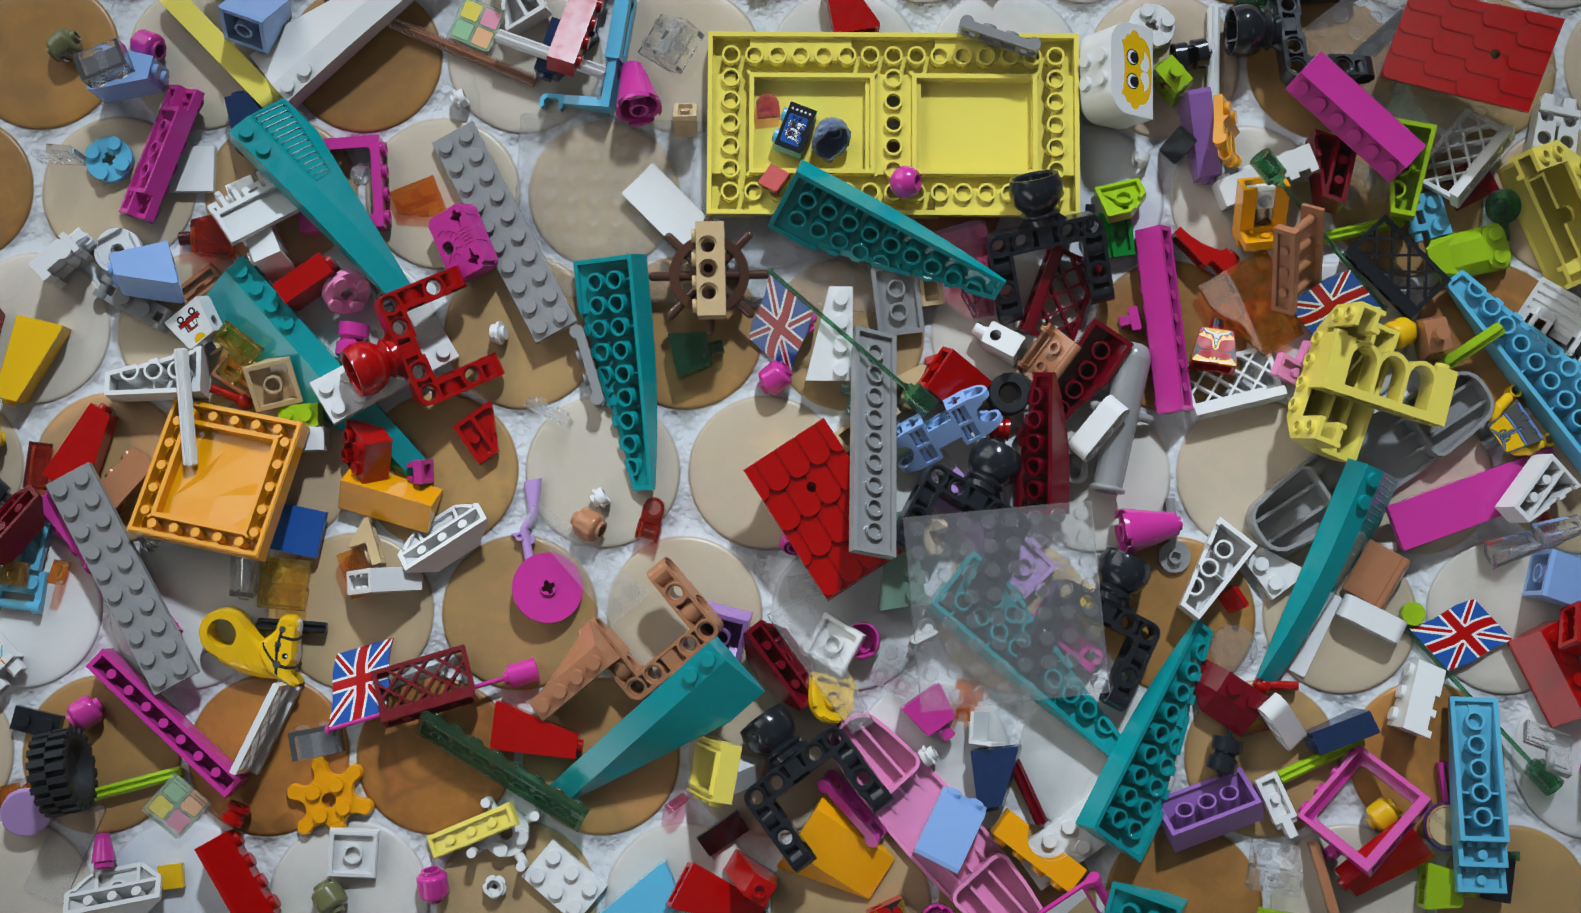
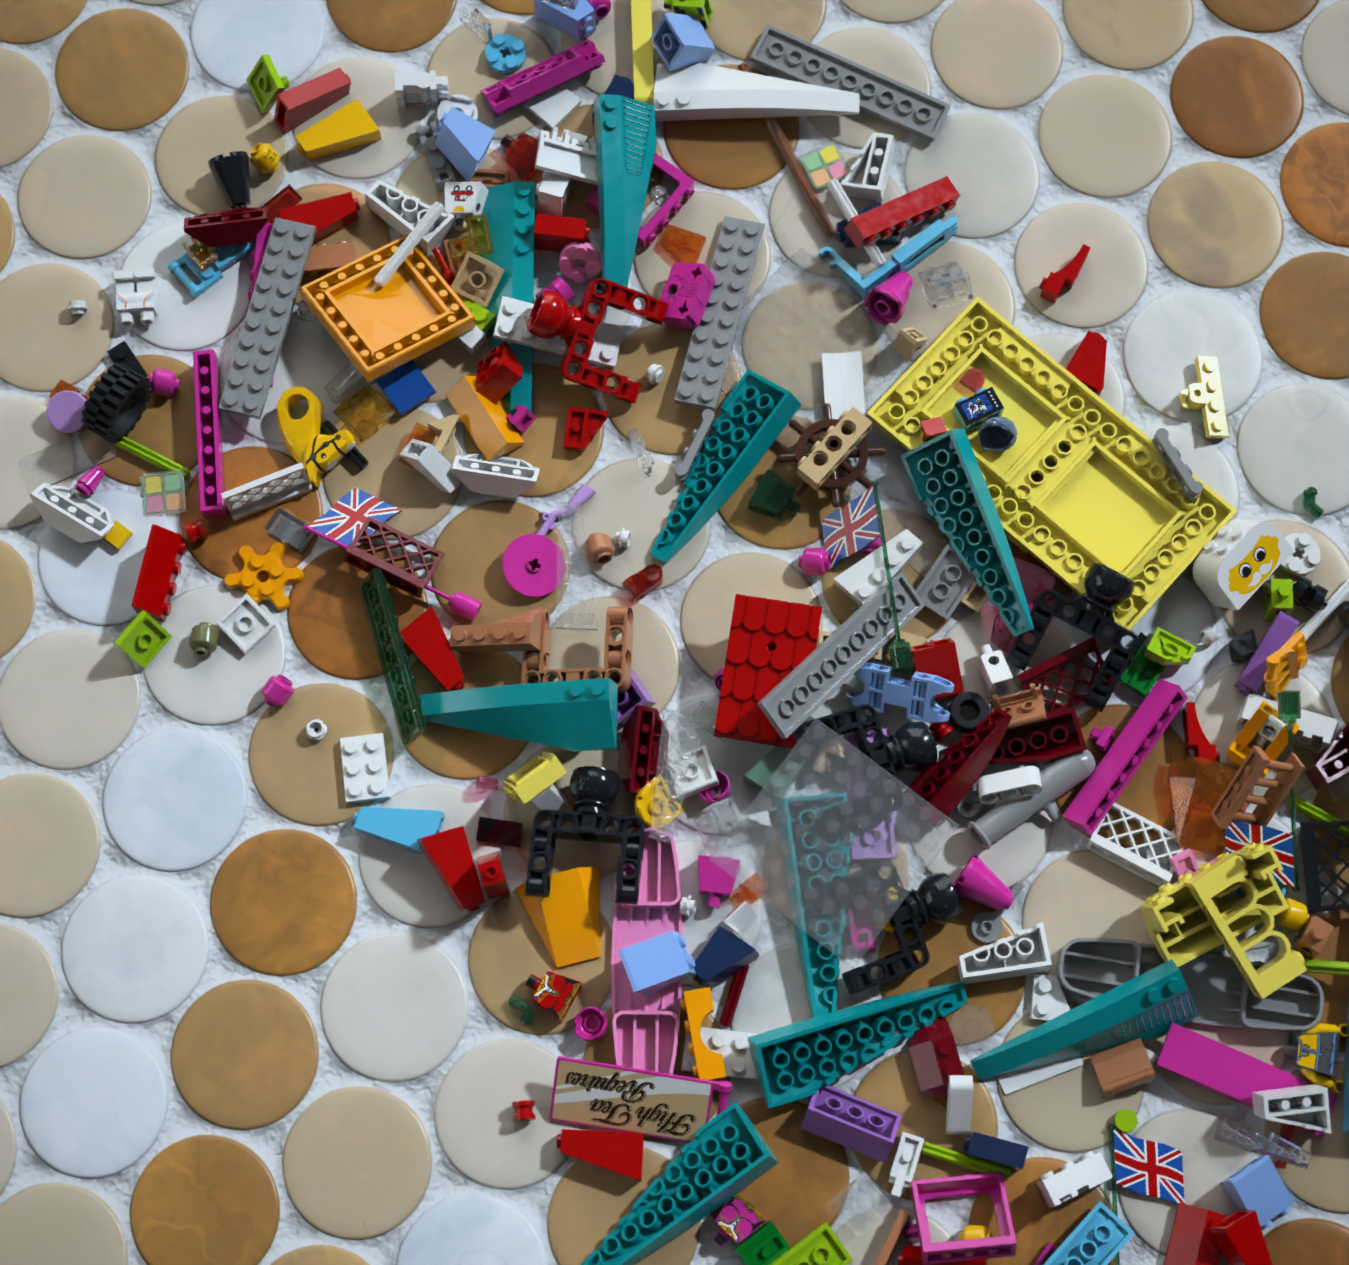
camera: 50 degrees right, 10 degrees down
(59, 572) = (230, 281): clear orange tile -> none
(460, 99) = (769, 204): white plate -> none
(473, 830) = (337, 678): light yellow tile -> none
(508, 847) = (355, 688): white plate -> none
(852, 807) = (603, 893): dark pink plate -> none
(905, 182) = (1022, 504): dark pink piece -> none
(1214, 349) = (1142, 807): torso -> none
(1225, 750) = (899, 1091): black wheel -> none
(1232, 599) = (1001, 992): red slope -> none
(1266, 686) = (979, 1081): red bar -> none
(1371, 619) = (1091, 1096): white beam -> none

